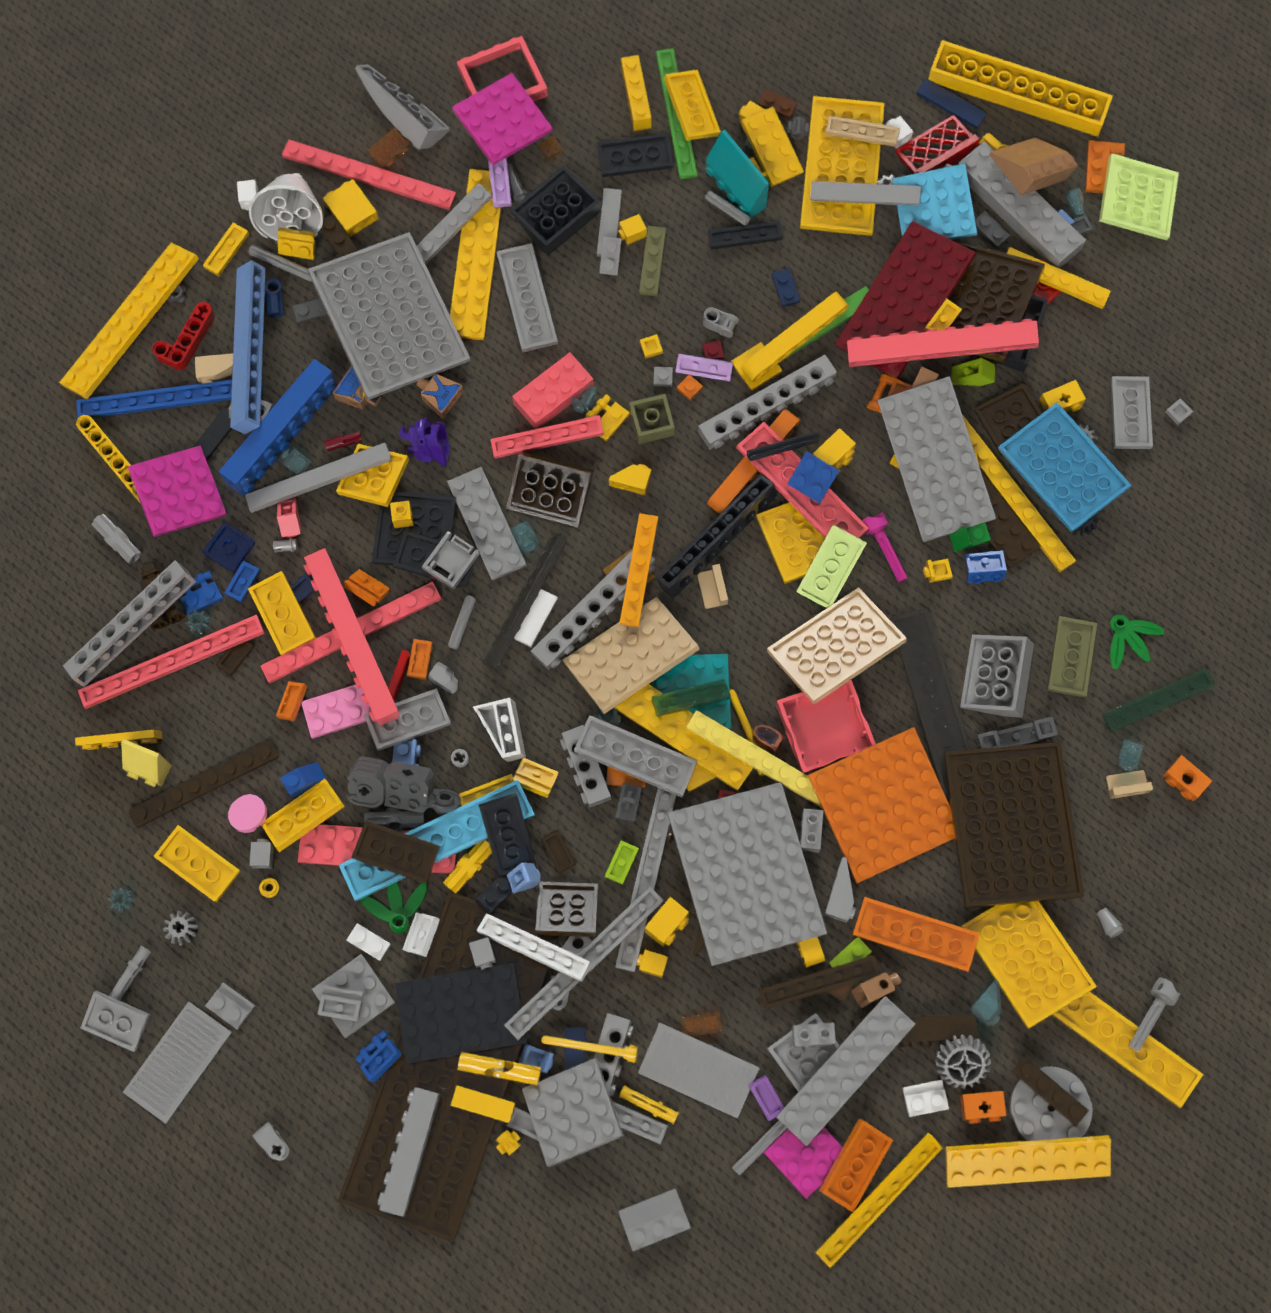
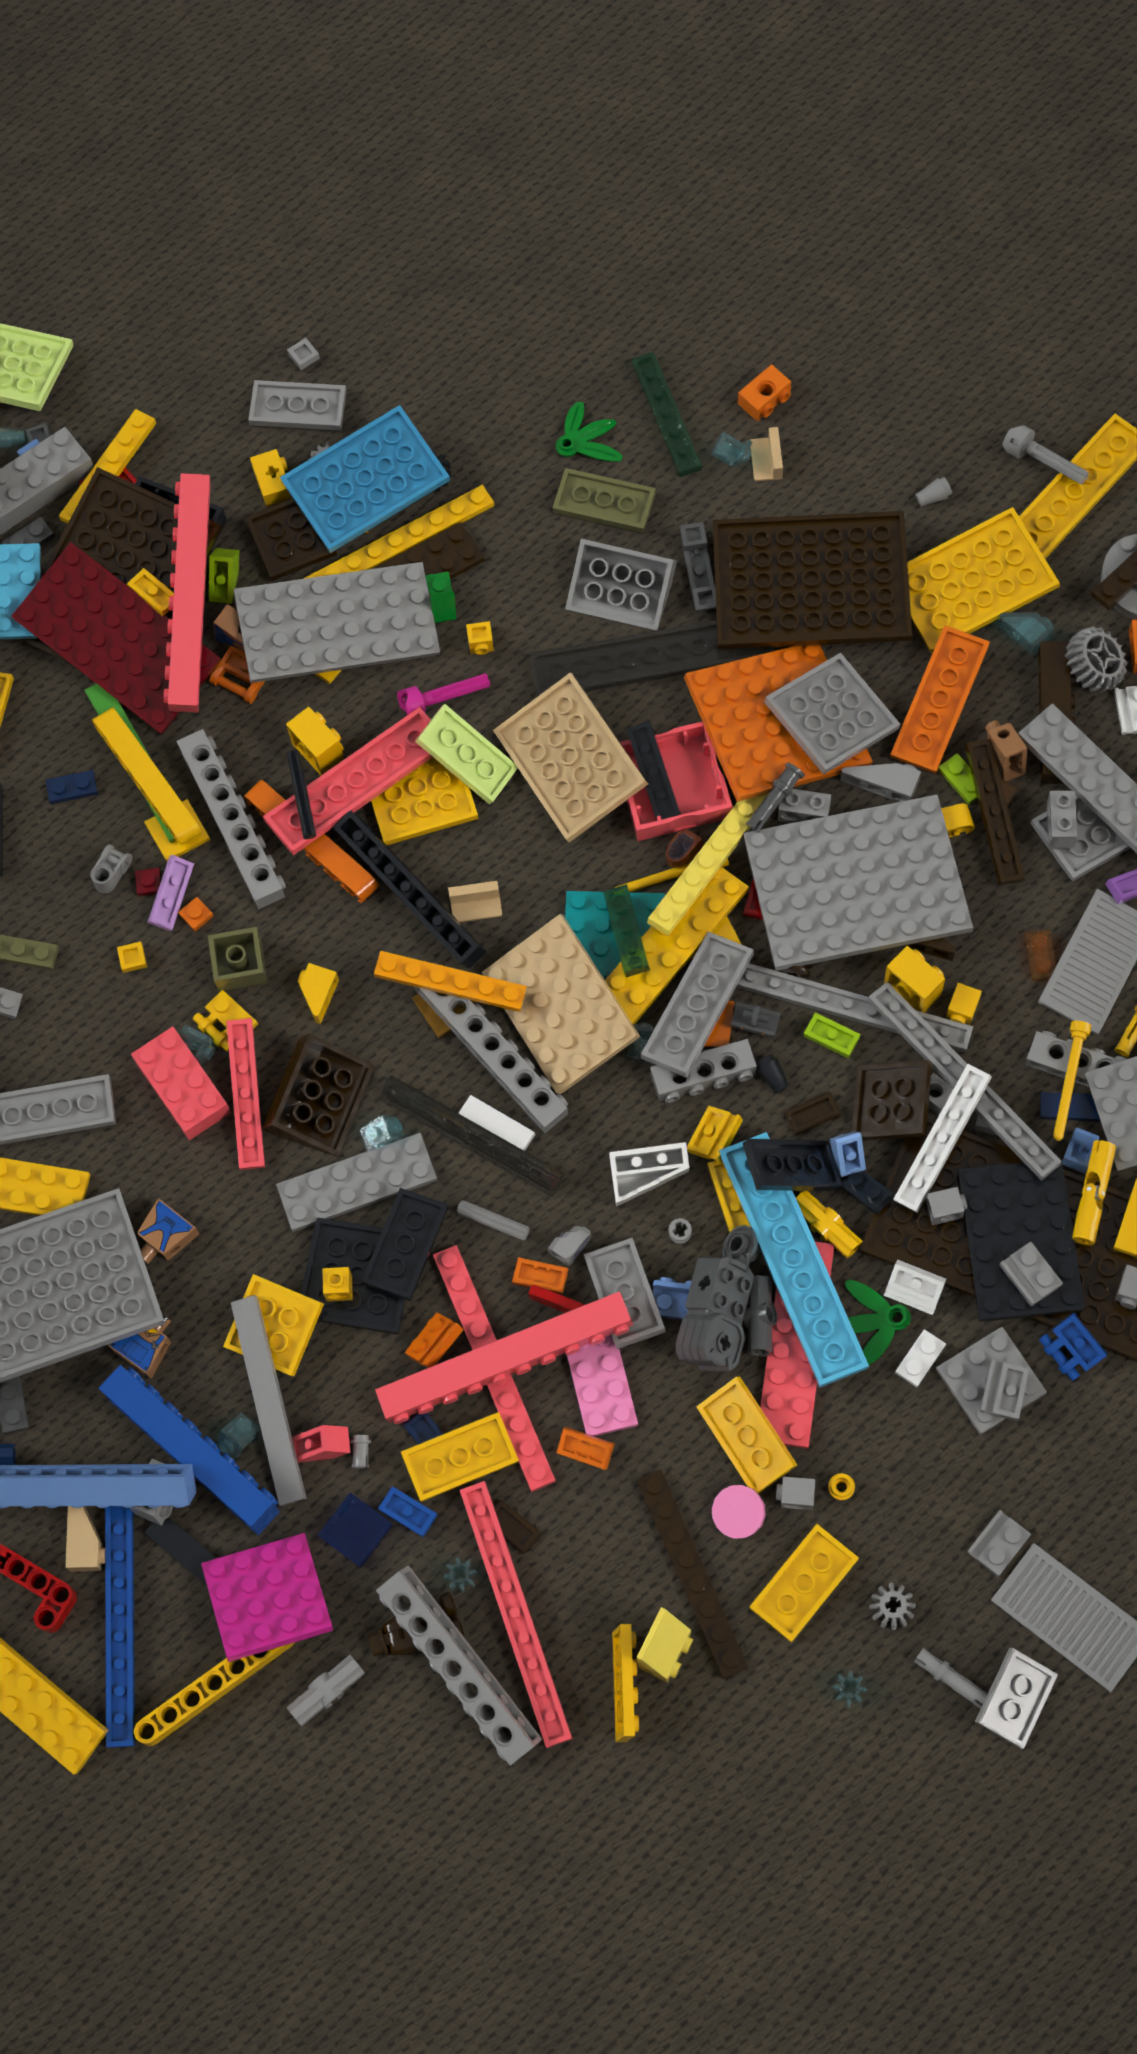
camera: 80 degrees left, 5 degrees down
(203, 597) = (423, 1565): blue plate -> none
(302, 779) = (696, 1436): blue slope -> none
(343, 441) = (216, 1367): dark red axle -> none
(395, 852) = (809, 1306): dark brown plate -> none
(427, 441) = (233, 1252): dark purple helmet -> none
(429, 1019) = (1031, 1274): none -> light grey plate
(451, 557) = (408, 1217): light grey container -> none
(588, 818) = (772, 1073): none -> black cone
(663, 376) = (176, 946): light grey plate -> none
(813, 477) = (348, 760): blue plate -> none
(818, 807) = (781, 788): none -> dark grey pin
(828, 709) = (653, 770): none -> black plate
(892, 846) = (832, 713): none -> light grey plate
(985, 567) = (480, 583): blue bracket -> none

